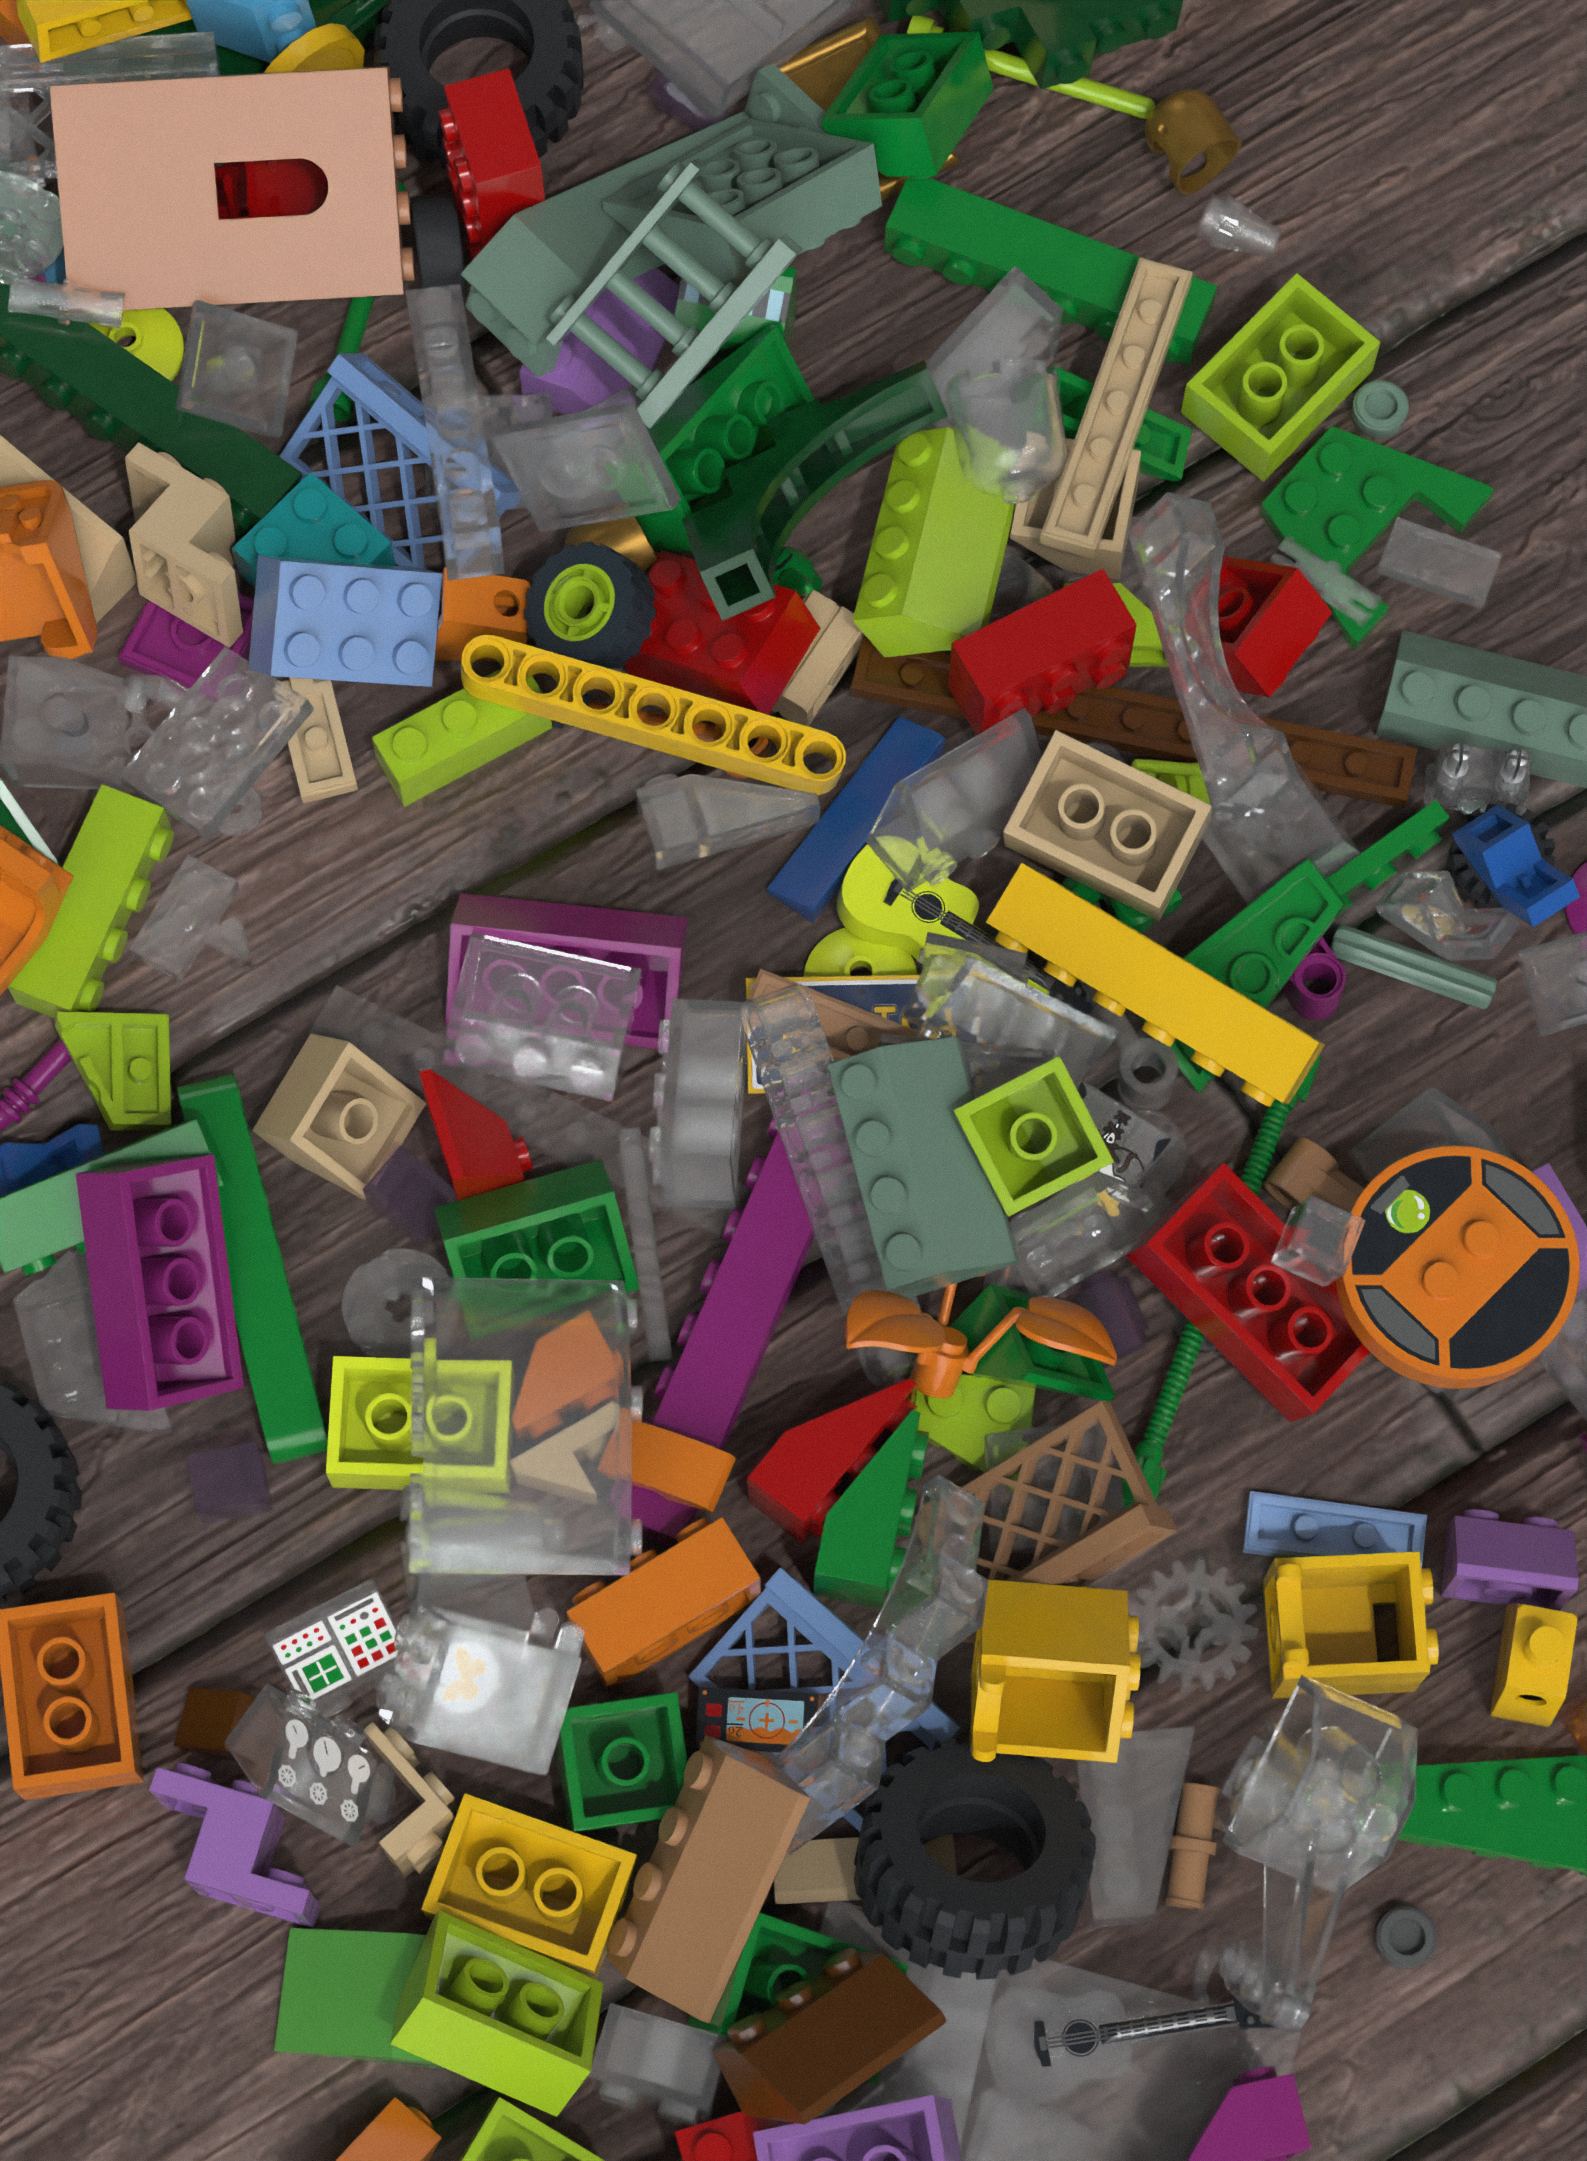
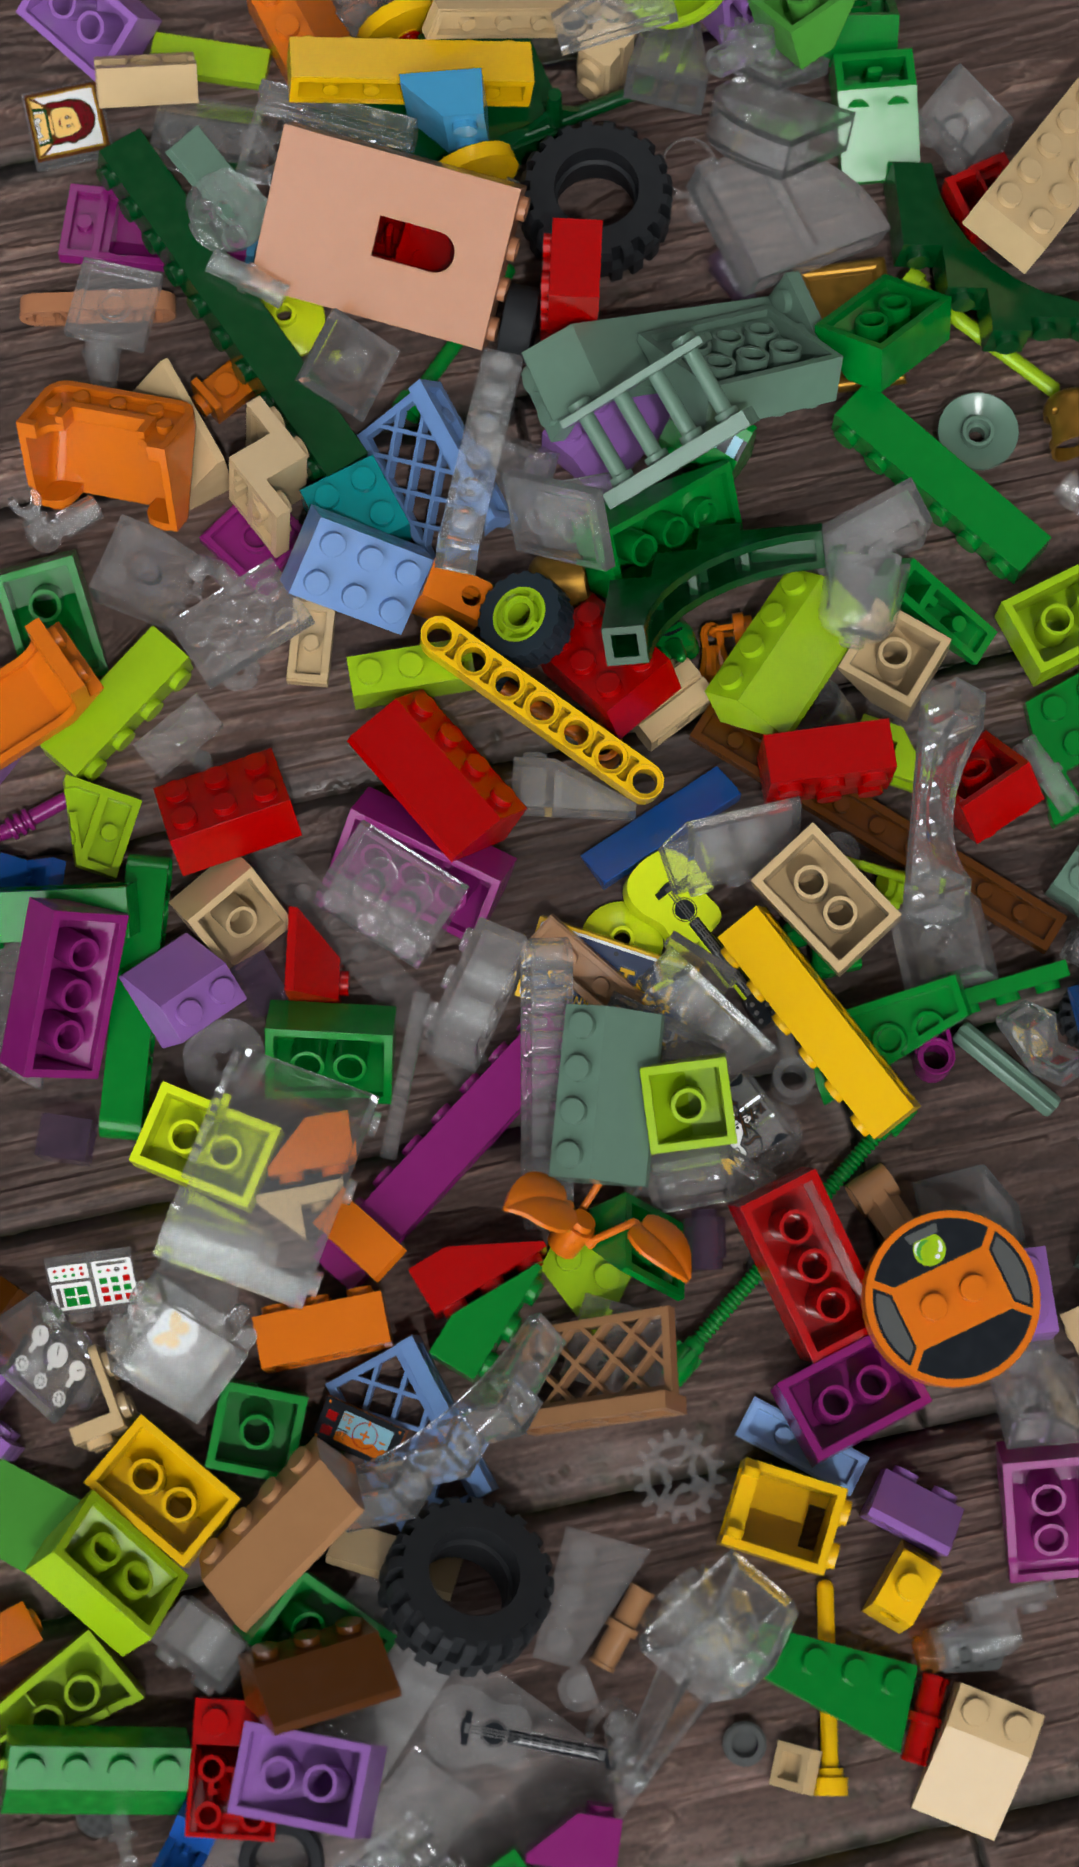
camera: 20 degrees right, 5 degrees up
(81, 463) = (220, 393): none -> orange bracket
(289, 986) = (227, 812): none -> red brick
(314, 1233) = (182, 989): none -> medium lavender slope
(548, 844) = (438, 775): none -> red slope
(846, 579) = (715, 655): none -> orange piece
(1053, 1672) = (566, 1479): yellow container -> none
(1079, 169) = (983, 415): none -> sand green dish
(1116, 408) = (945, 602): tan tile -> none
(1165, 1946) = (577, 1689): none -> clear brick
(1318, 1241) = (859, 1248): clear panel -> none
(1371, 1448) = (846, 1400): none -> magenta brick
(1483, 1941) = (795, 1767): none -> tan plate
(1532, 1938) = (829, 1777): none -> yellow piece

